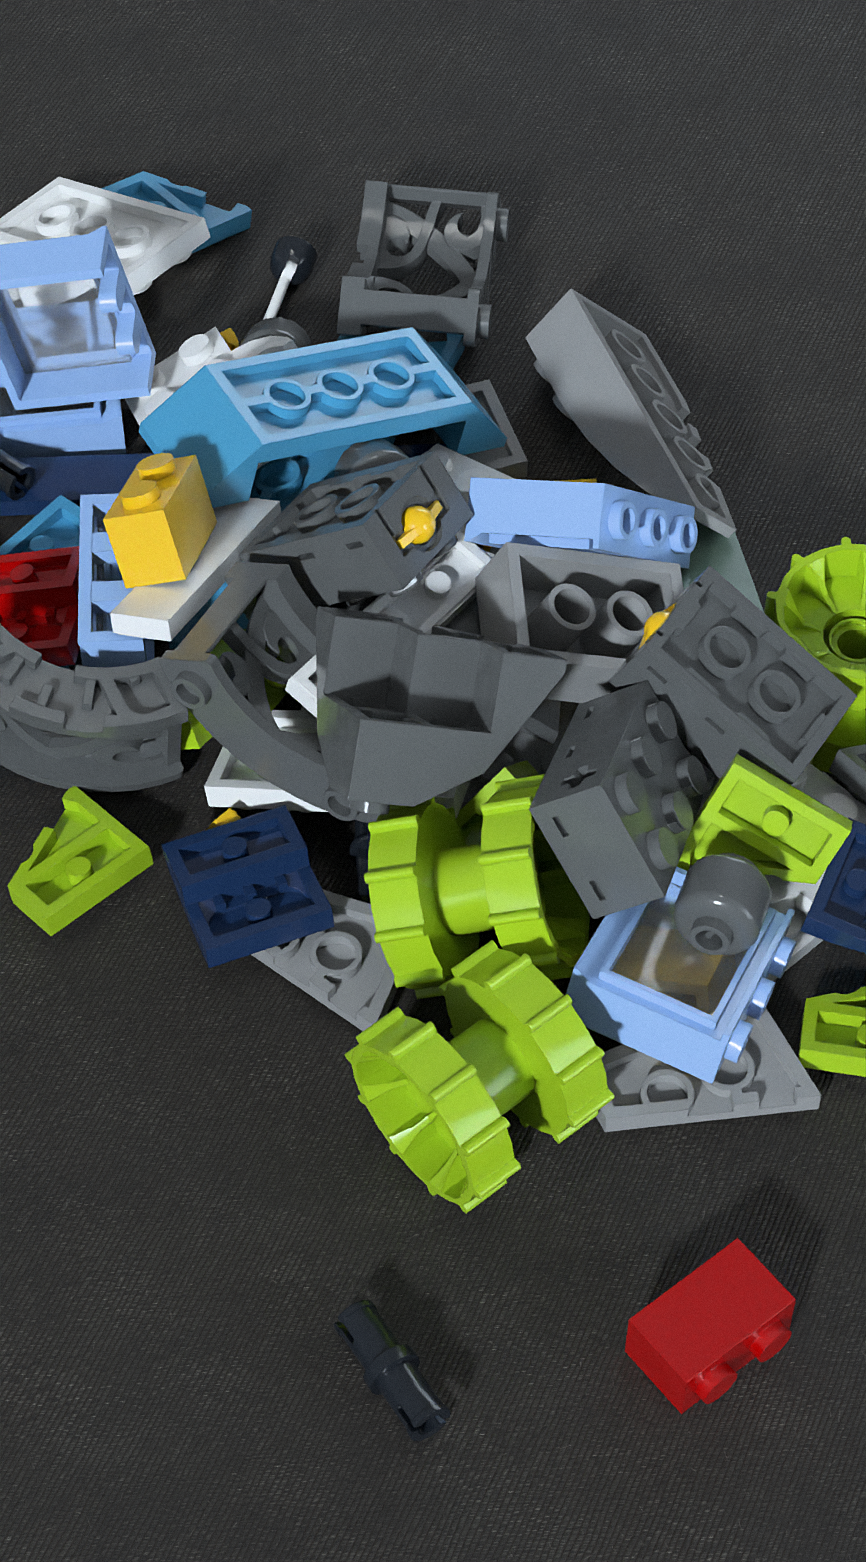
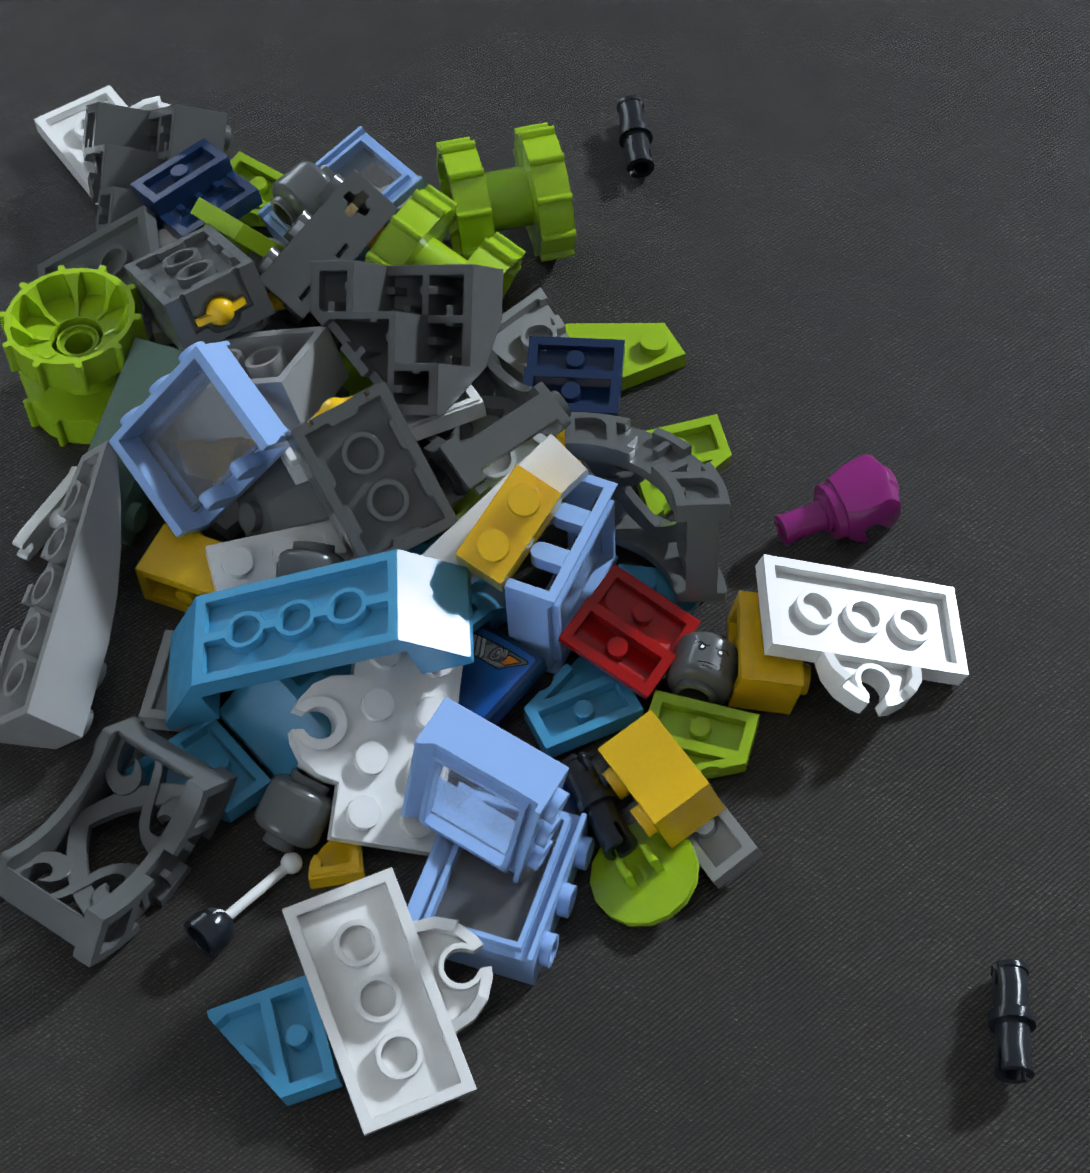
camera: 150 degrees left, 0 degrees up
(221, 1006) = (648, 348): none -> lime wing
(711, 1327) = (455, 95): red brick -> none
(755, 542) = (43, 522): none -> white piece

